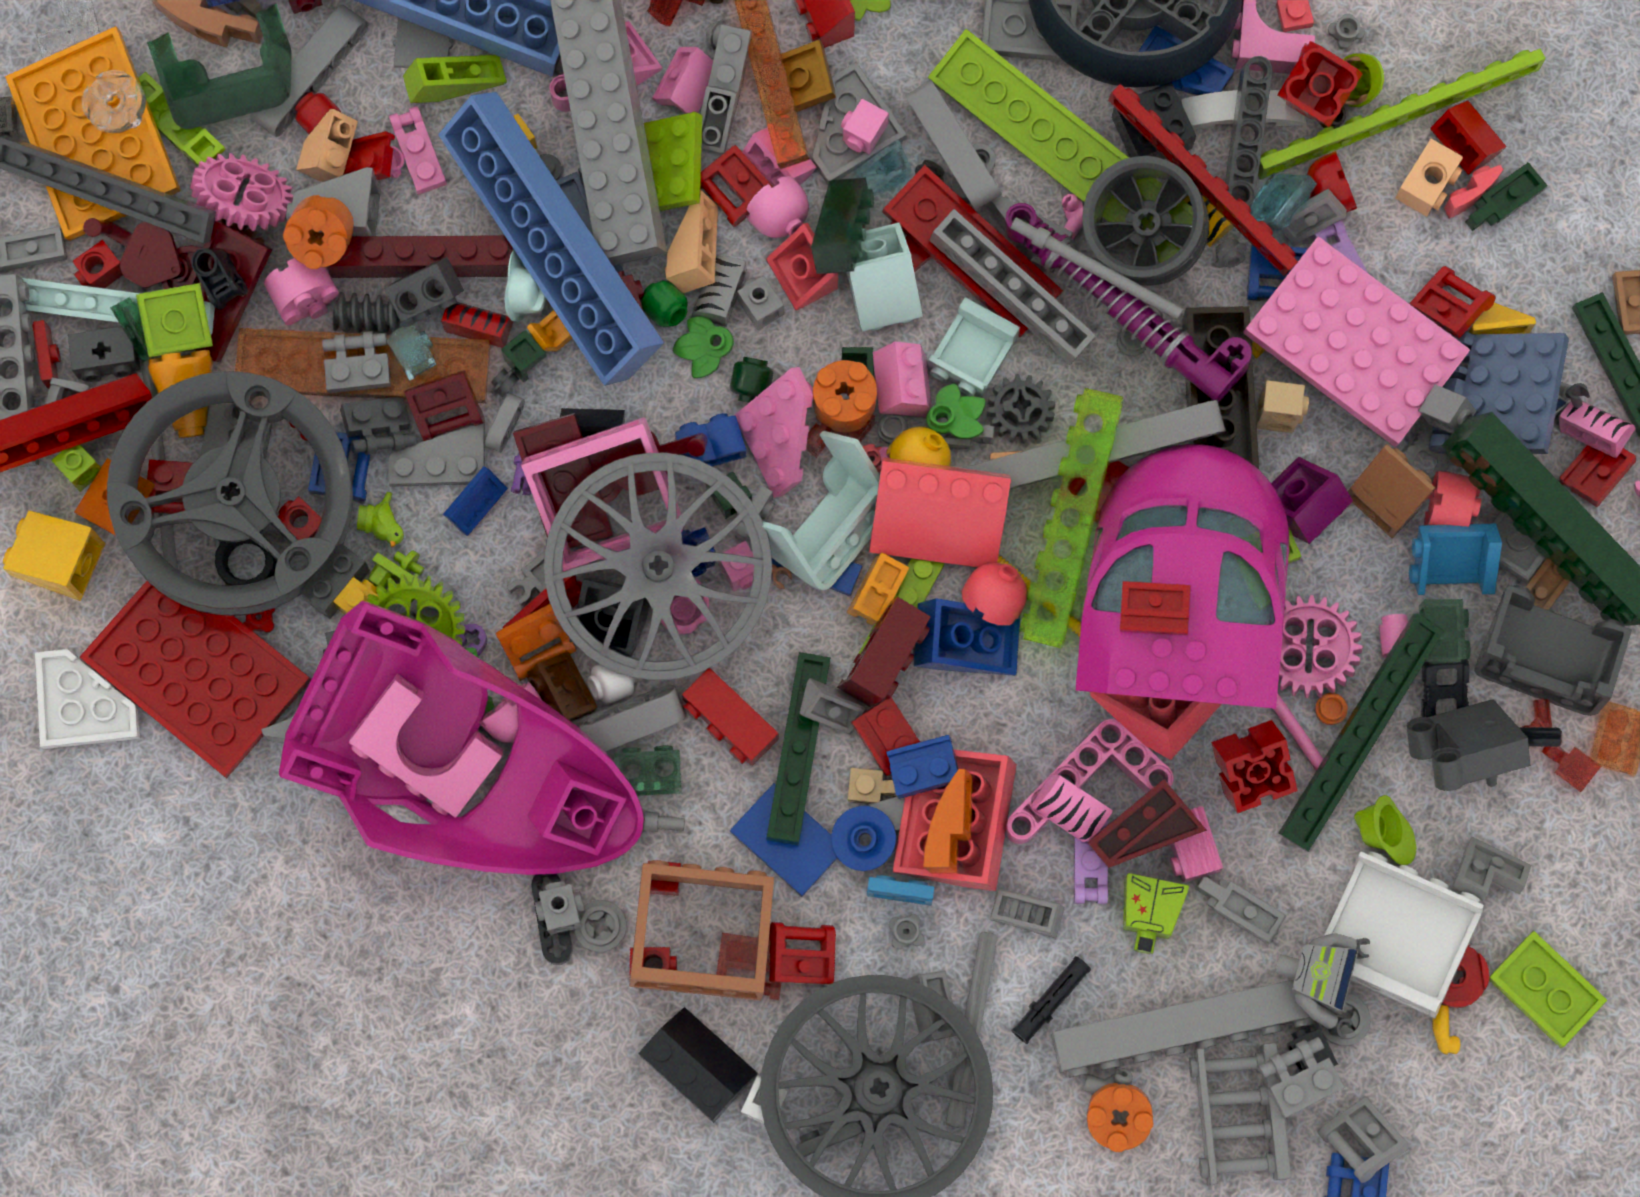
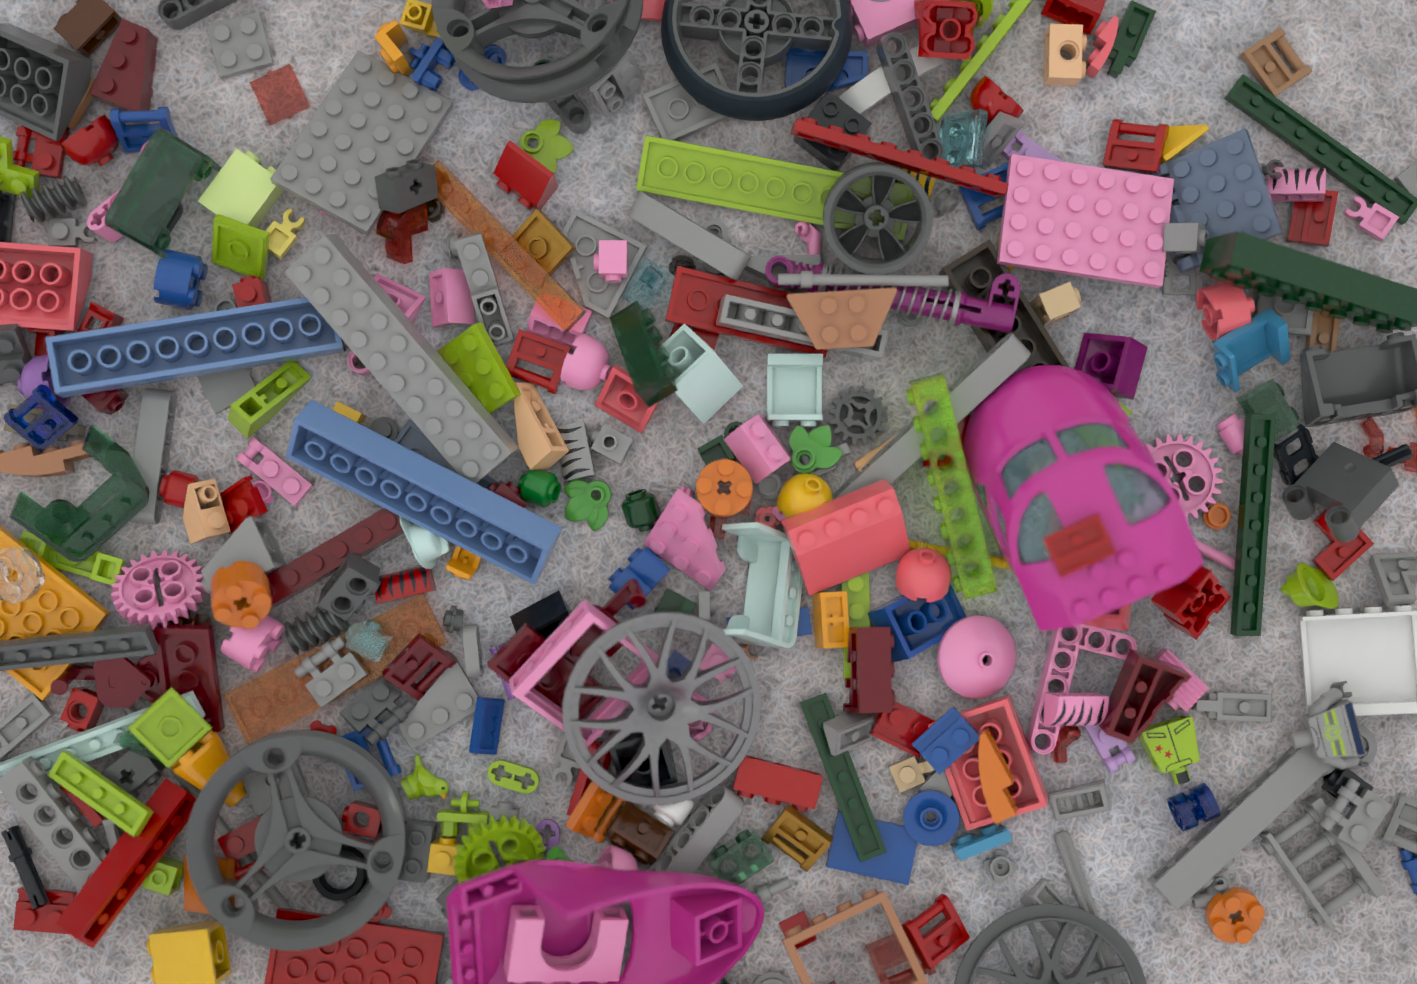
camera: 30 degrees left, 10 degrees up
(69, 347) = (100, 793): none -> lime plate
(221, 282) = (184, 672): black piece -> none
(477, 561) = (510, 782): none -> lime beam
(523, 354) = (455, 591): dark green panel -> none
(724, 779) = (801, 833): none -> pearl gold plate
(982, 706) = (962, 655): none -> bright pink dish
(1025, 1029) = (1135, 856): black pin -> none
(1044, 841) = (1066, 736): none -> clear red arm
(1056, 292) = (843, 317): none -> nougat wing
(1151, 981) = (1193, 807): none -> clear blue wheel
(1391, 490) = (1176, 325): medium nougat slope -> none
(1447, 813) = (1337, 555): none -> red plate

